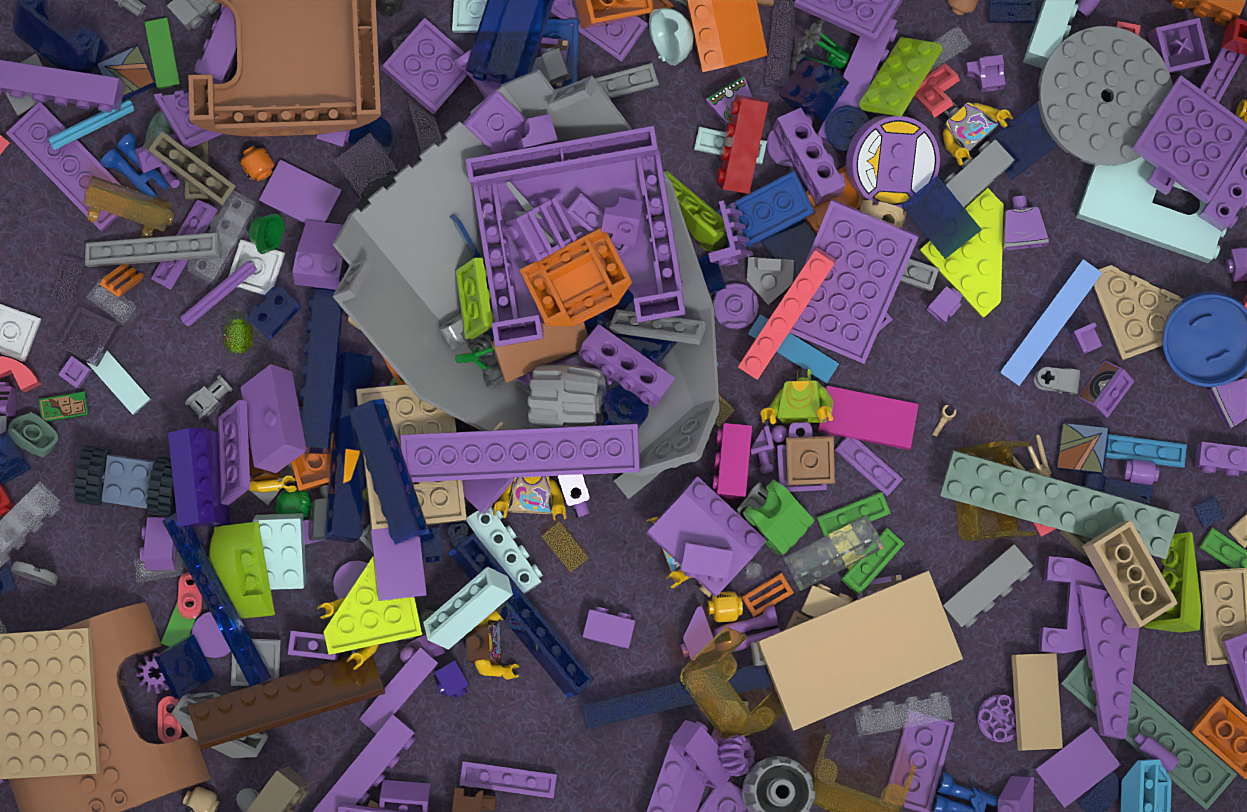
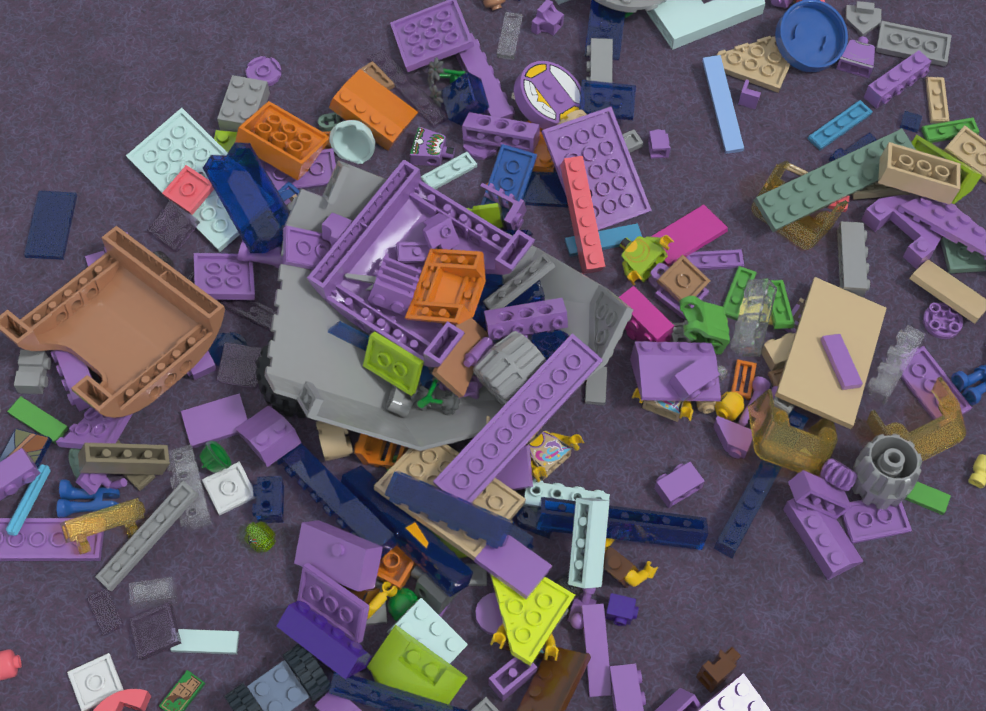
camera: 50 degrees left, 20 degrees down
(75, 372) = (168, 663): medium lavender plate -> none
(135, 279) = (141, 571): orange tile -> none
(195, 223) = (172, 539): medium lavender plate -> none
(208, 398) = (278, 594): light grey connector -> none
(218, 293) = (220, 523): medium lavender axle -> none
(257, 163) = (167, 426): orange head -> none
(508, 779) = (722, 636): medium lavender plate -> none
(556, 356) = (478, 351): none -> medium lavender cylinder
(565, 547) = (599, 465): clear yellow plate -> none
(578, 502) = (568, 423): torso -> none
(730, 311) = (550, 243): medium lavender tile -> none
(742, 143) = (456, 156): red brick -> none
(765, 444) = (648, 289): medium lavender piece -> none
(770, 276) = (547, 213): light grey plate -> none
(843, 125) = (503, 102): clear blue tile -> none
(851, 668) = (841, 361): none -> medium lavender tile
(900, 76) = (505, 53): lime plate -> none
(931, 92) = (529, 50): coral plate -> none
(944, 418) = (725, 199): tan hand -> none
(970, 127) = (569, 49): torso -> none
(977, 265) = (649, 110): neon yellow plate -> none
(1023, 226) = (653, 73): medium lavender torso -> none
(1061, 380) = (759, 127): light grey piece -> none
(1083, 448) = (813, 146): tile -> none
(1106, 388) = (787, 110): medium lavender panel -> none
(1140, 472) = (855, 131): medium lavender brick -> none

